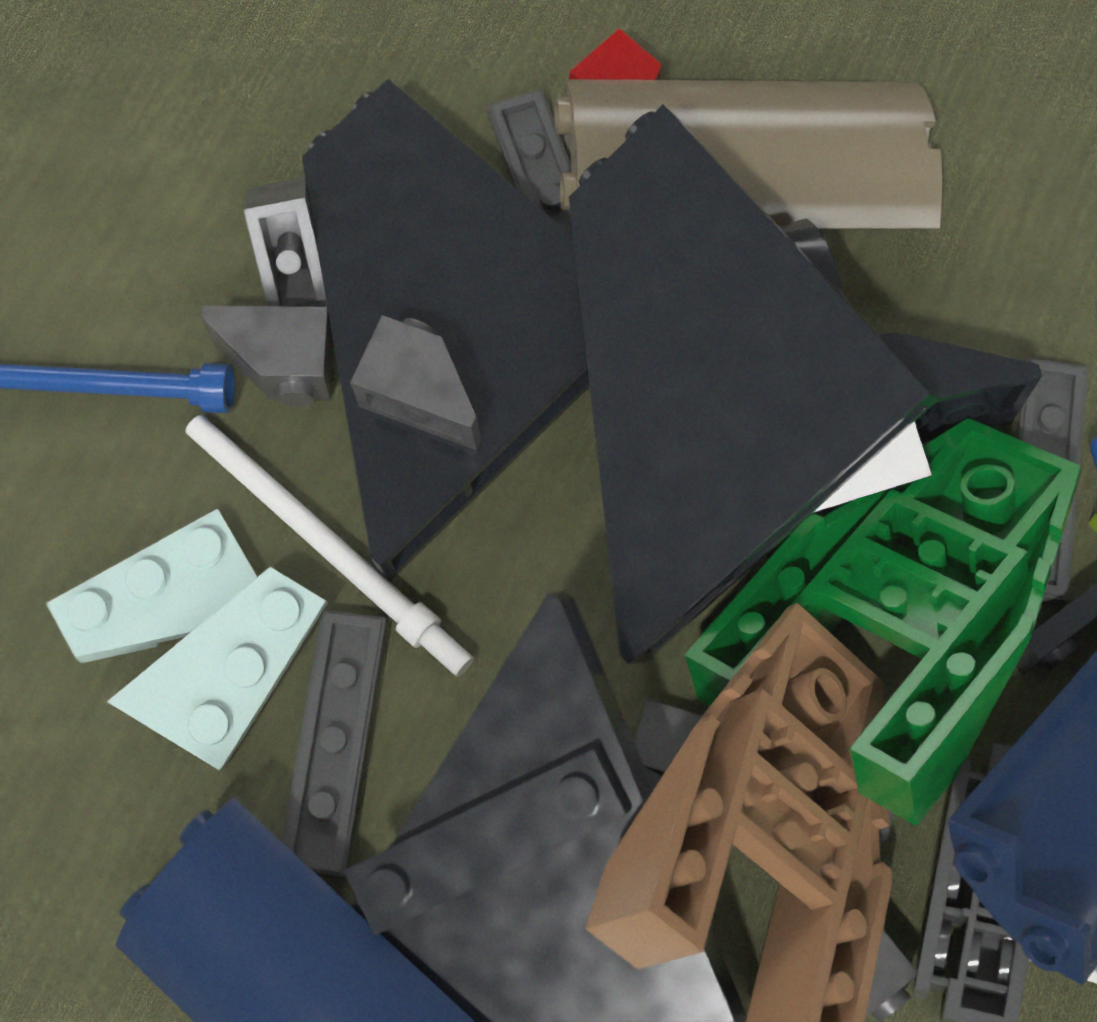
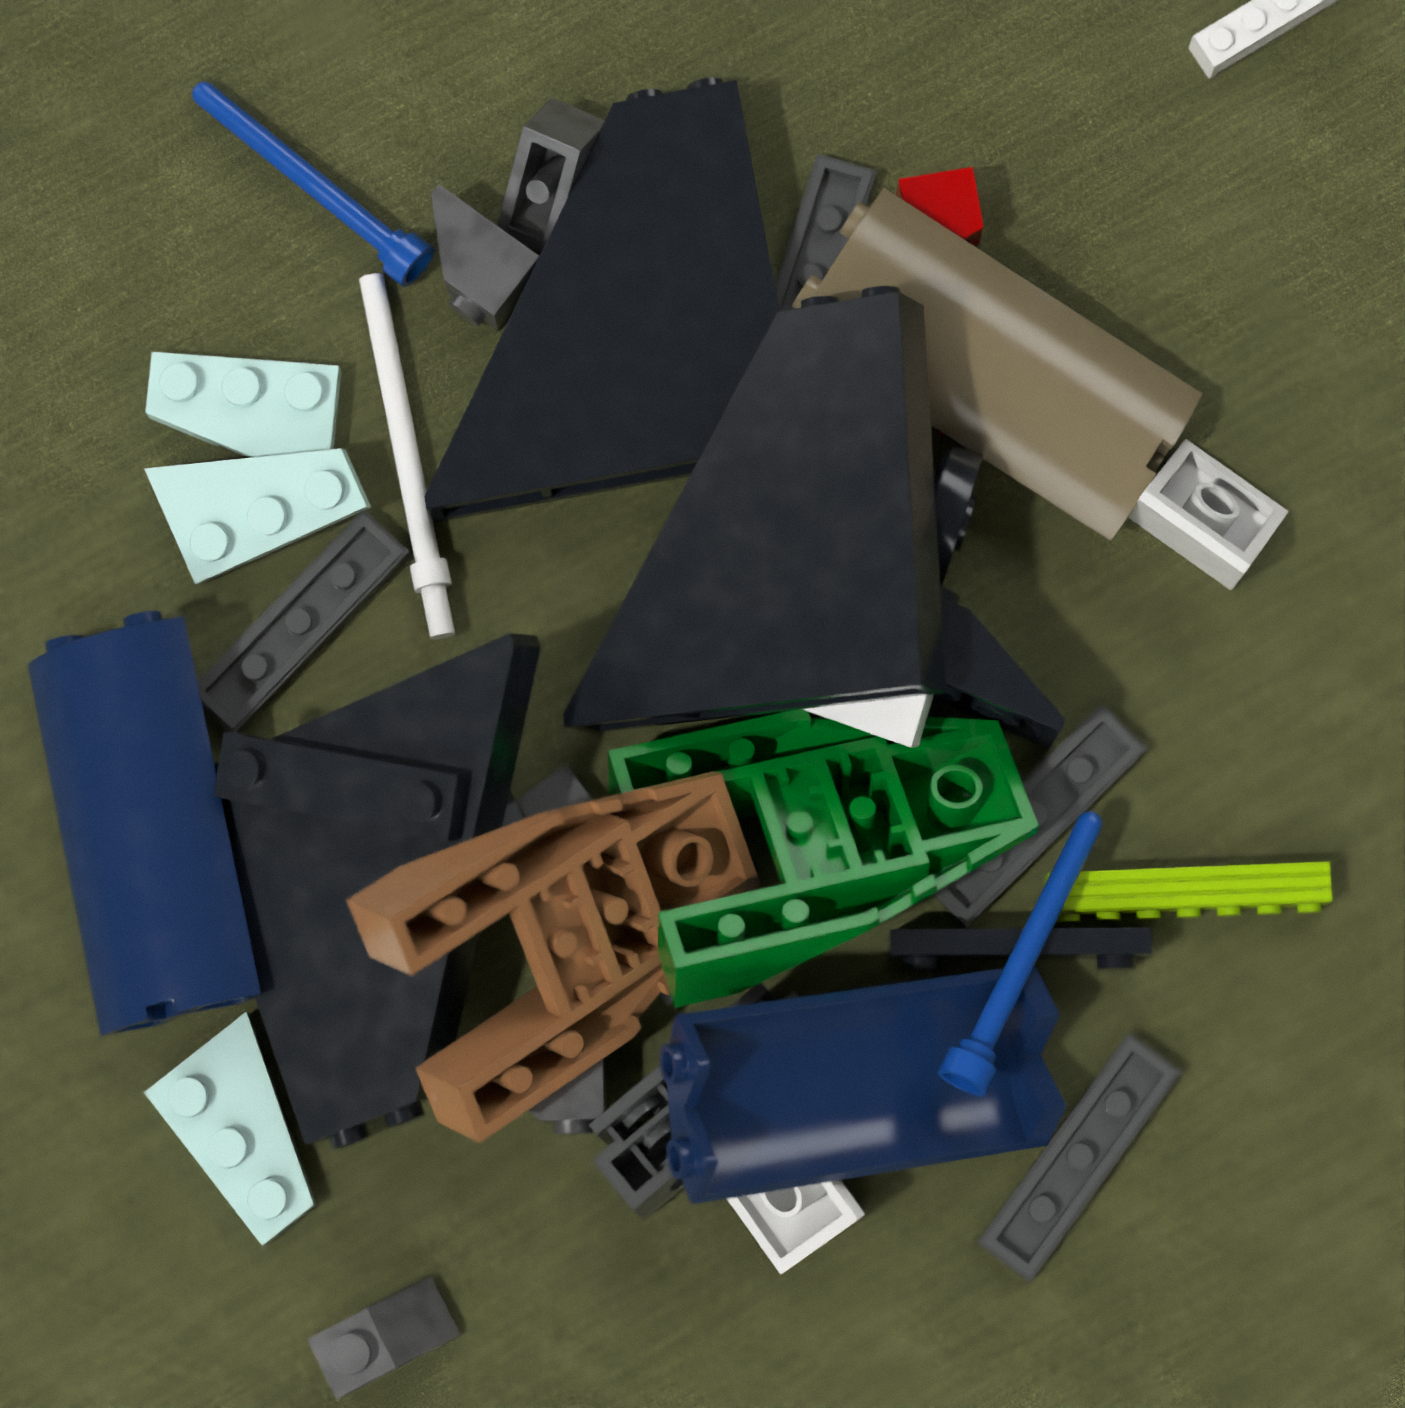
camera: 40 degrees right, 10 degrees up
(414, 381) = (558, 376): flat silver slope -> none
(998, 172) = (1207, 514): none -> white slope

